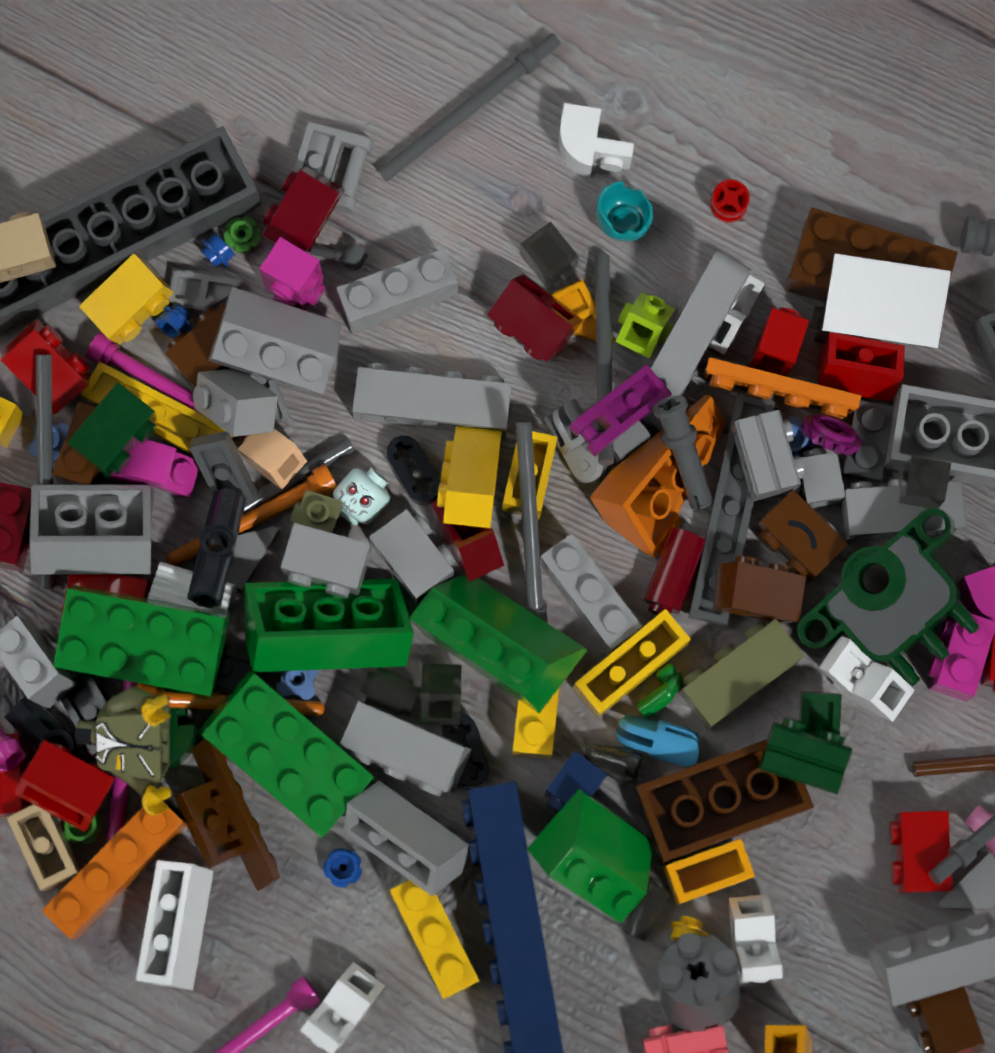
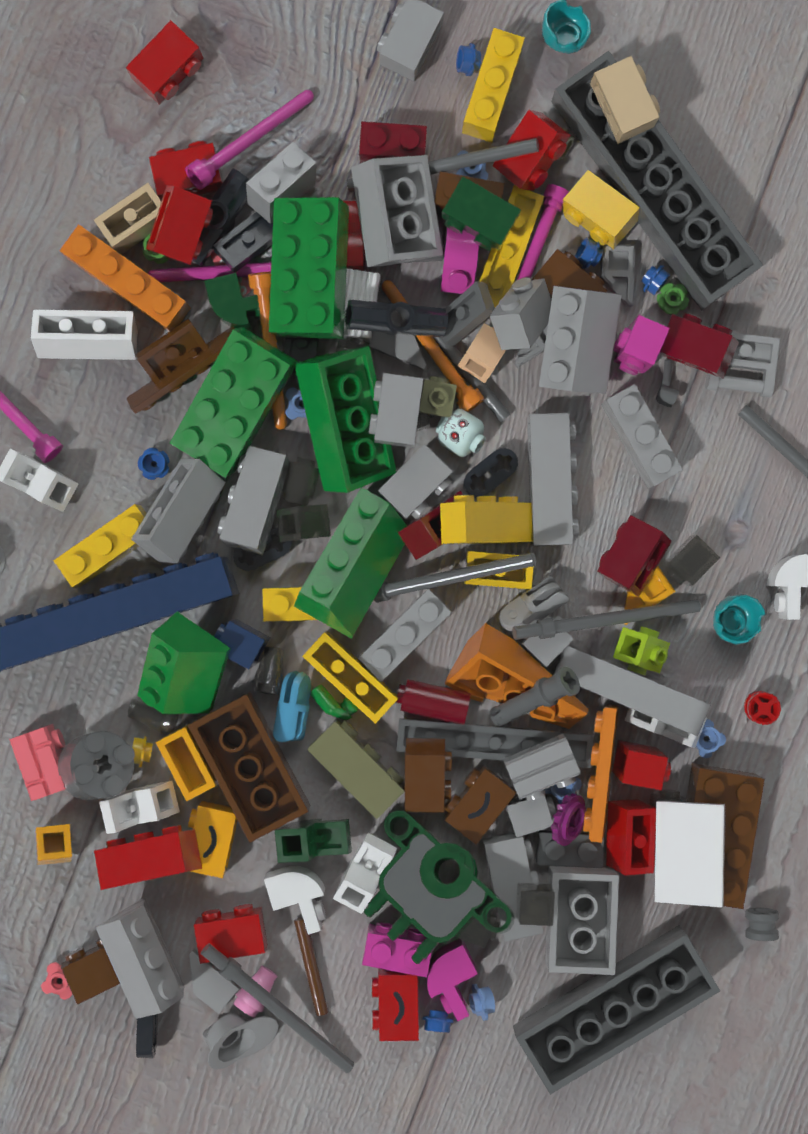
camera: 85 degrees right, 10 degrees up
(133, 743) = (221, 275): olive torso -> none
(620, 409) = (560, 640): magenta plate -> none
(761, 258) = (715, 740): none -> medium blue plate
(805, 756) = (287, 832): dark green brick -> none
(805, 860) = (215, 834): none -> light orange brick
(817, 936) = (147, 857): none -> red brick
(874, 761) = (294, 886): none -> white brick

